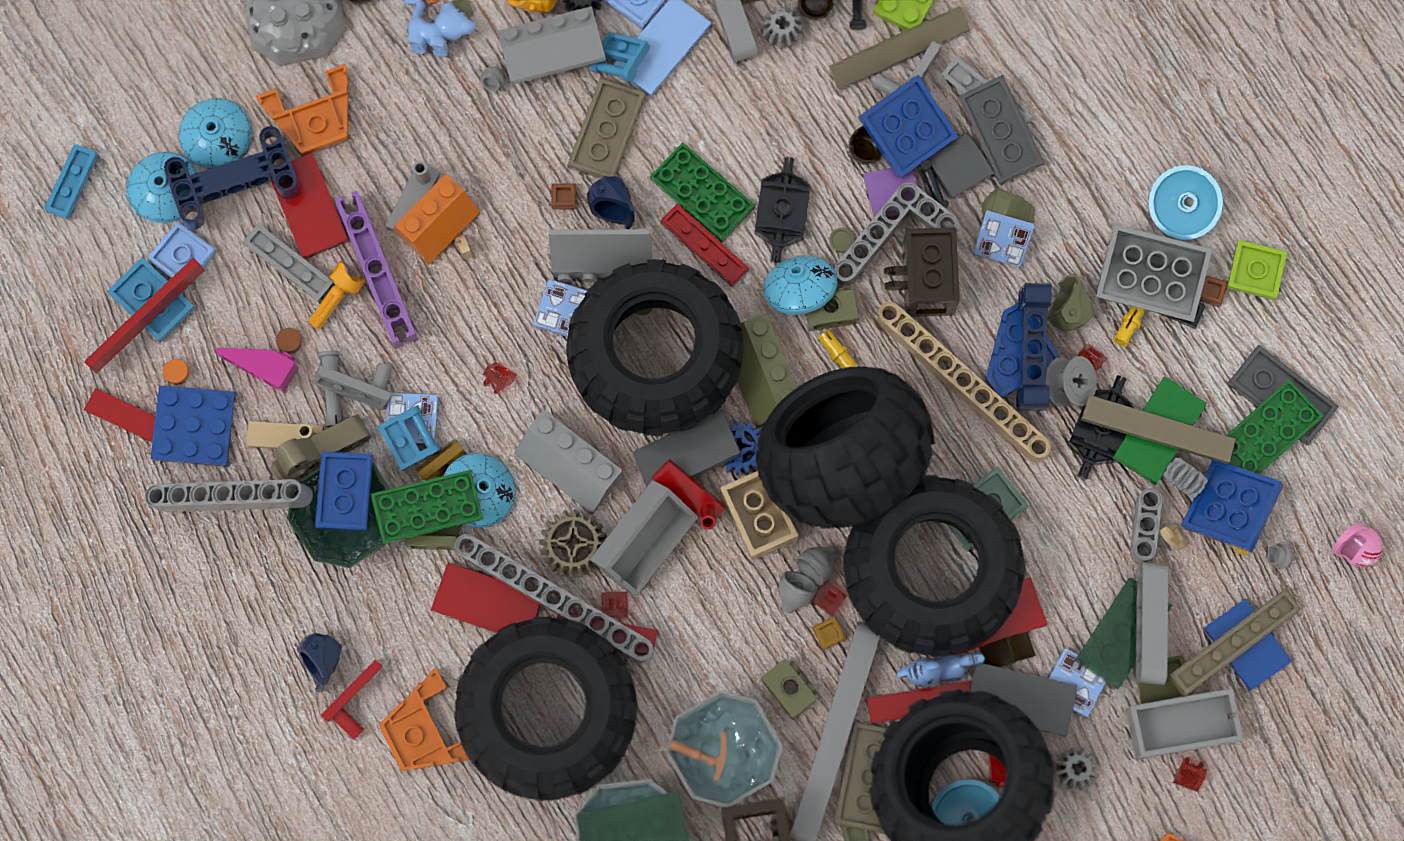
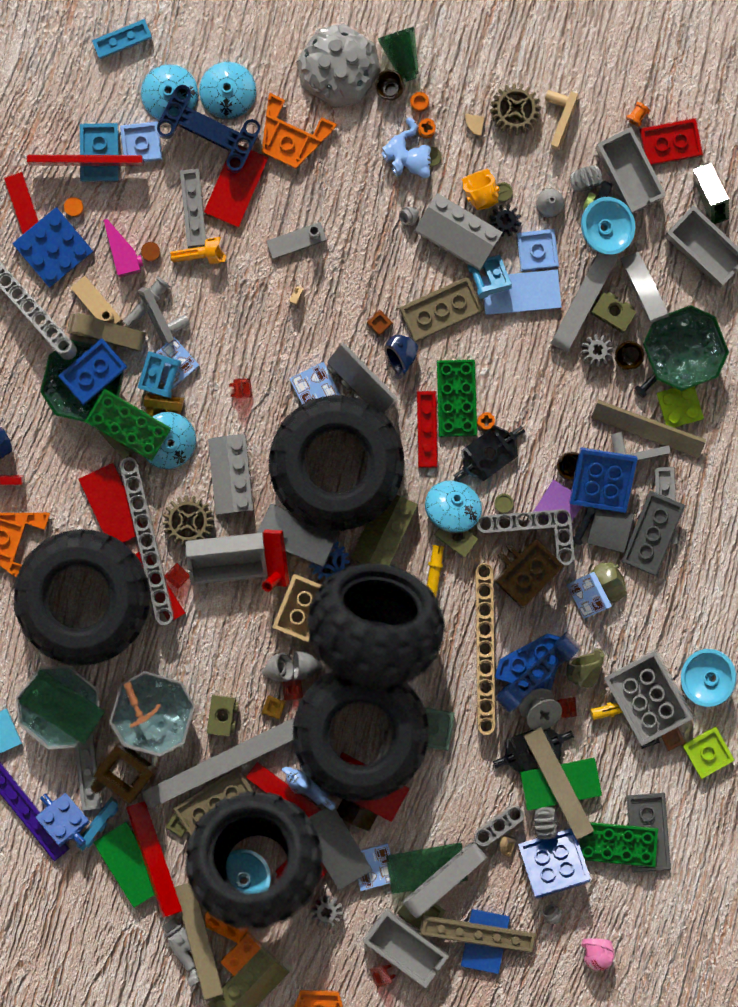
camera: 40 degrees right, 10 degrees up
(371, 254) = (242, 247): medium lavender piece -> none
(436, 219) = (296, 266): orange slope -> none
(749, 176) = (490, 417): none -> orange bush

